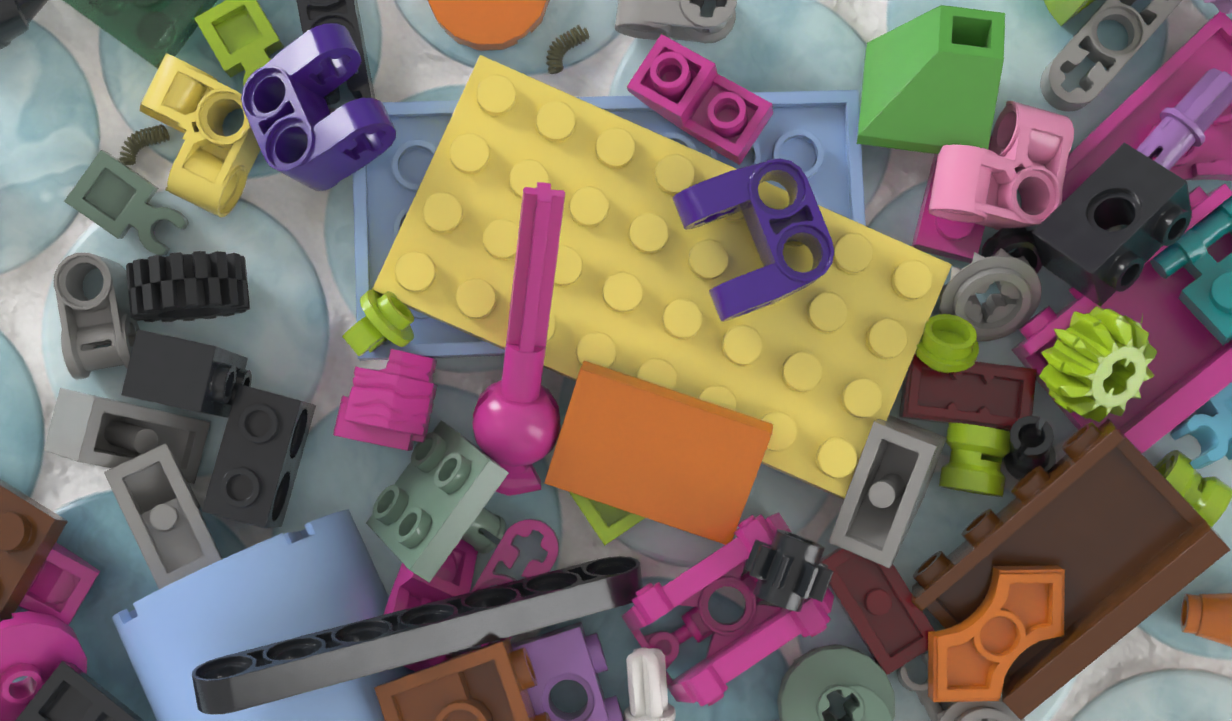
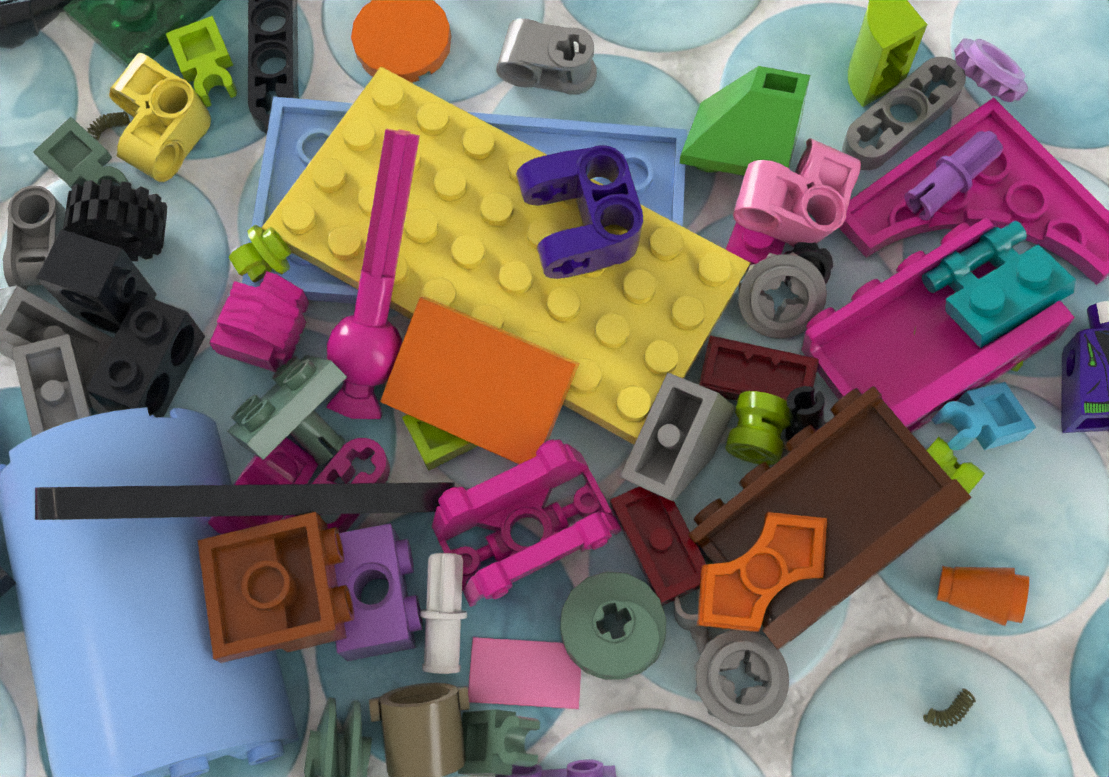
camera: 10 degrees right, 15 degrees down
(294, 120) = (233, 94): dark purple piece -> none
(558, 51) = (454, 85): olive leg -> none
(700, 100) = (549, 117): dark pink slope -> none
(788, 570) = (577, 481): black gear -> none
(948, 344) = (741, 326): lime plate -> none
(1098, 363) = (868, 347): lime gear -> none
(1120, 192) = (888, 236): black brick -> none

